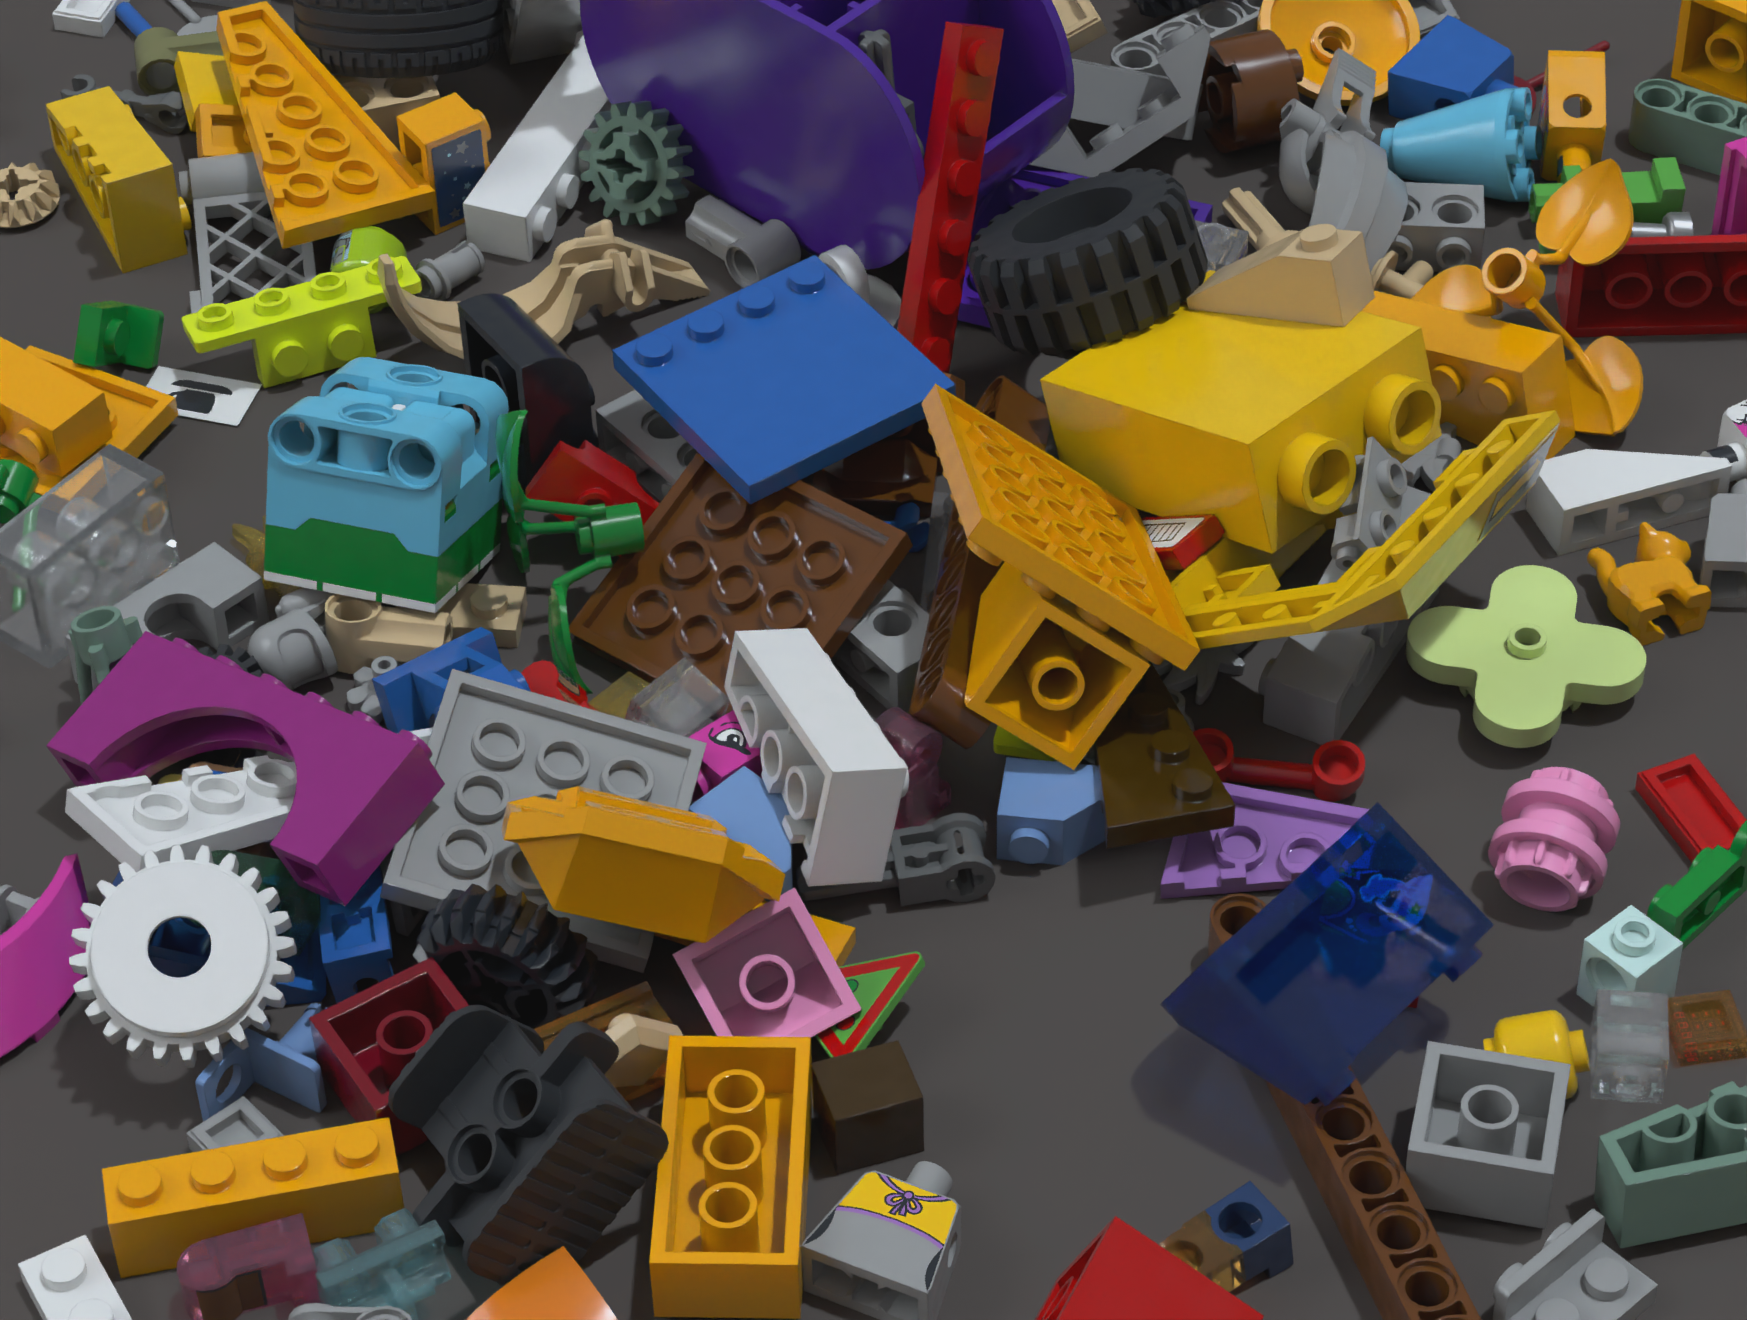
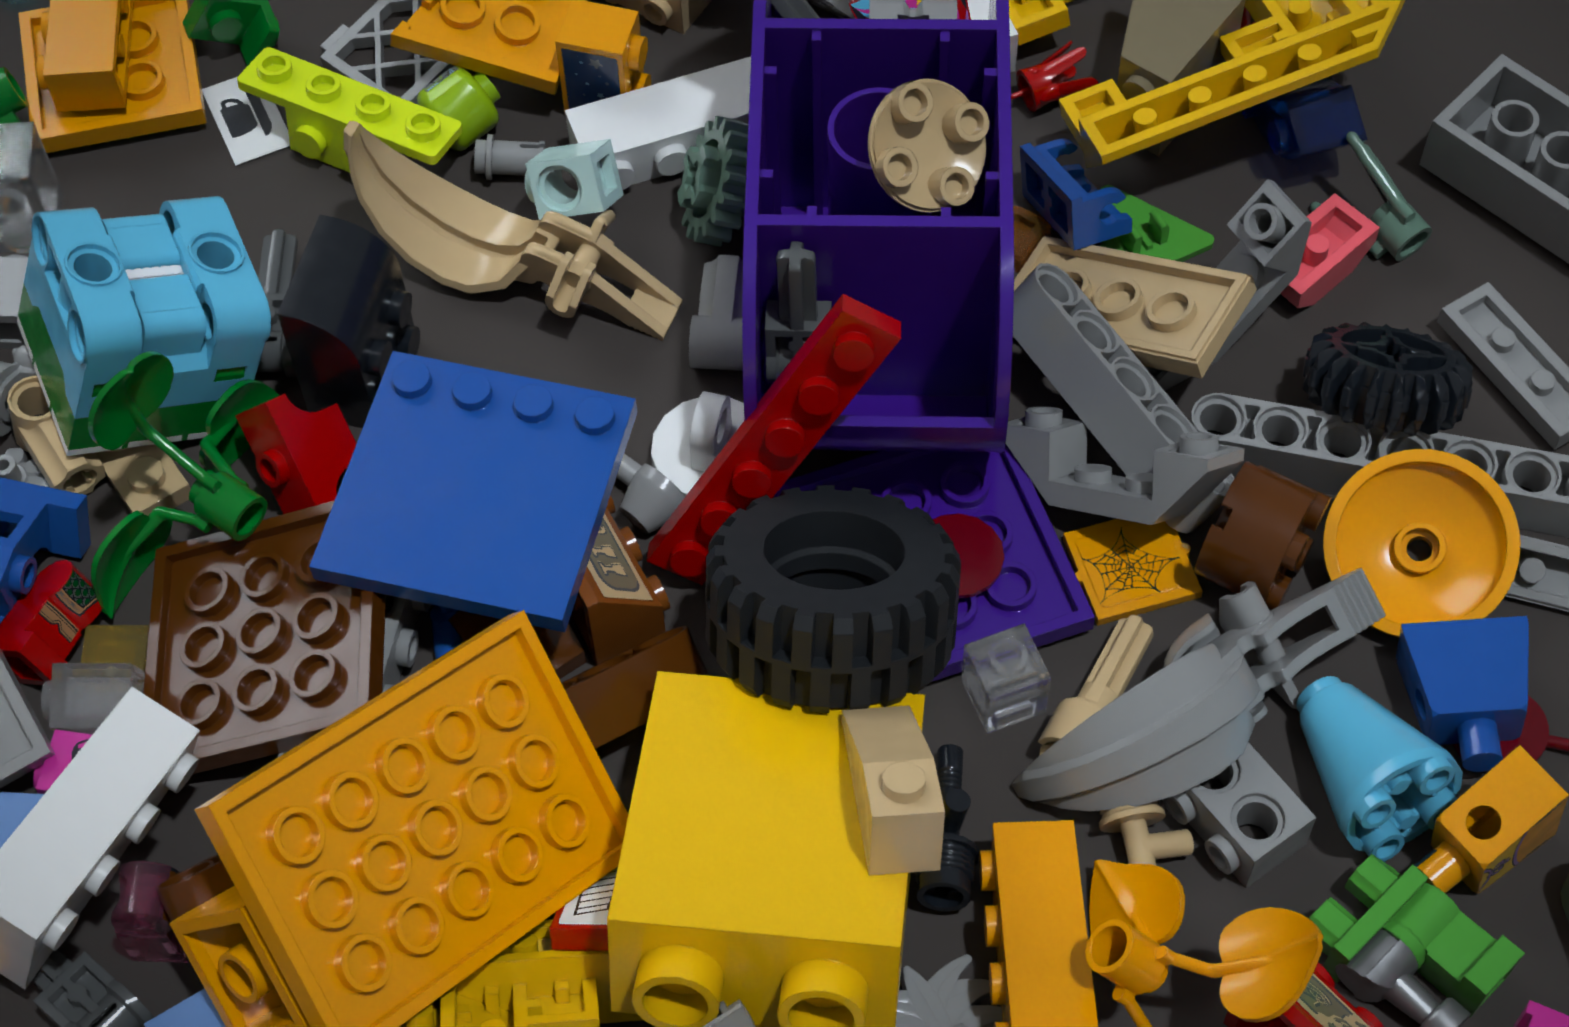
camera: 50 degrees right, 15 degrees up
(560, 220) = (591, 166): none -> light aqua brick
(1202, 173) = (1131, 568): none -> light orange piece

